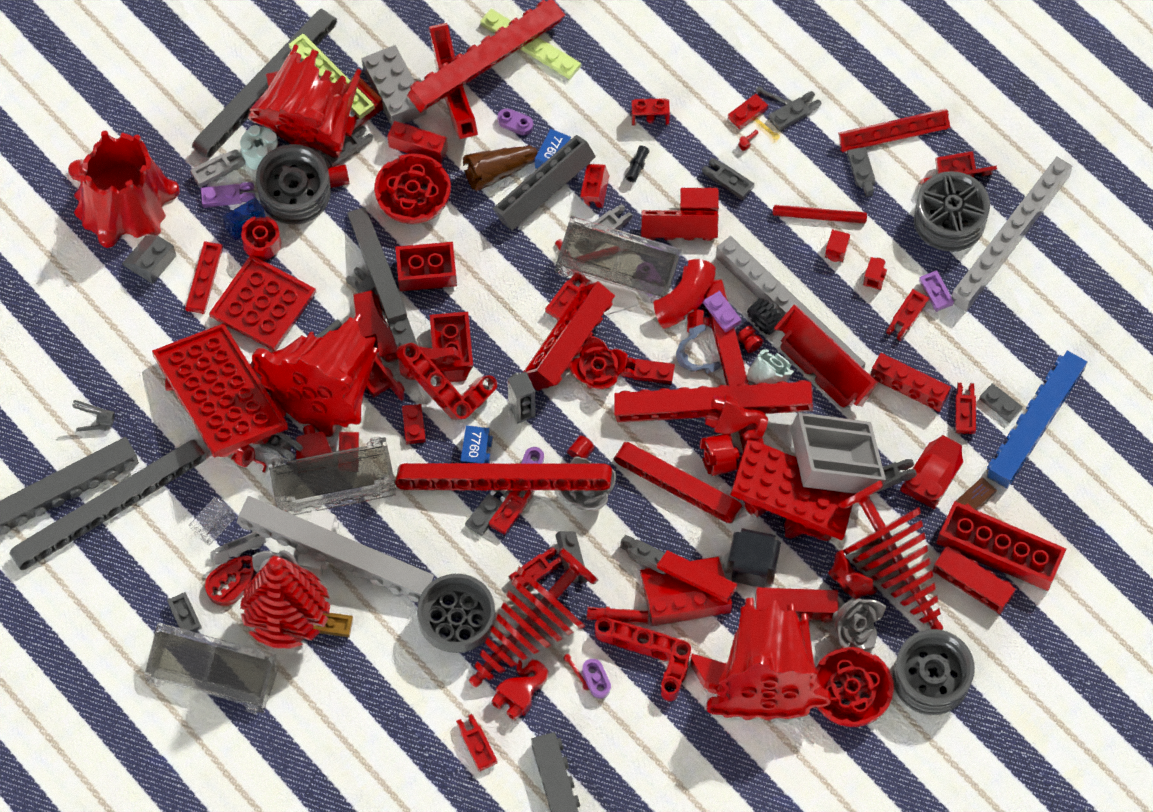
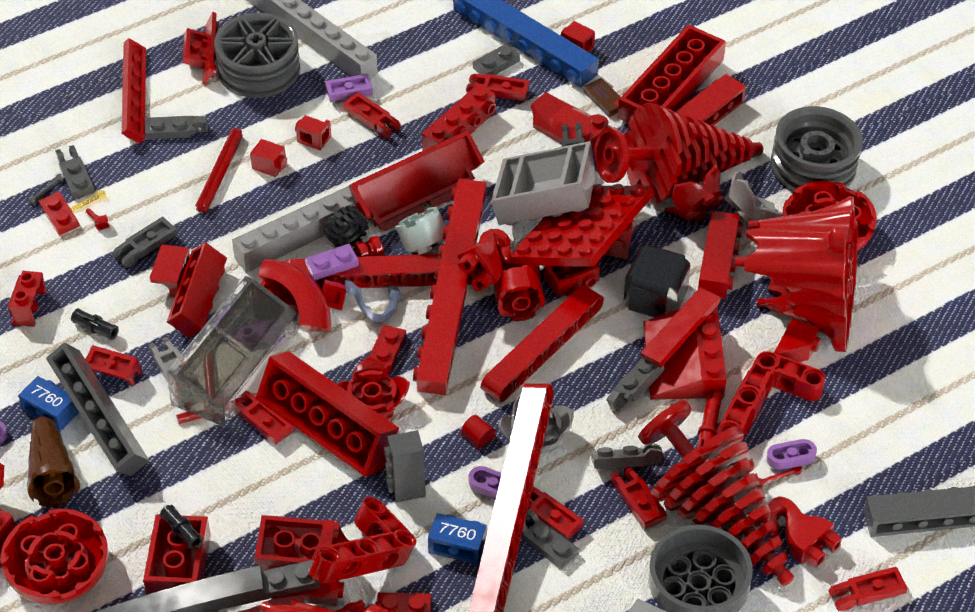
camera: 80 degrees left, 15 degrees down
(439, 258) = (181, 527): none -> black pin
(1040, 463) = (580, 35): none -> red brick

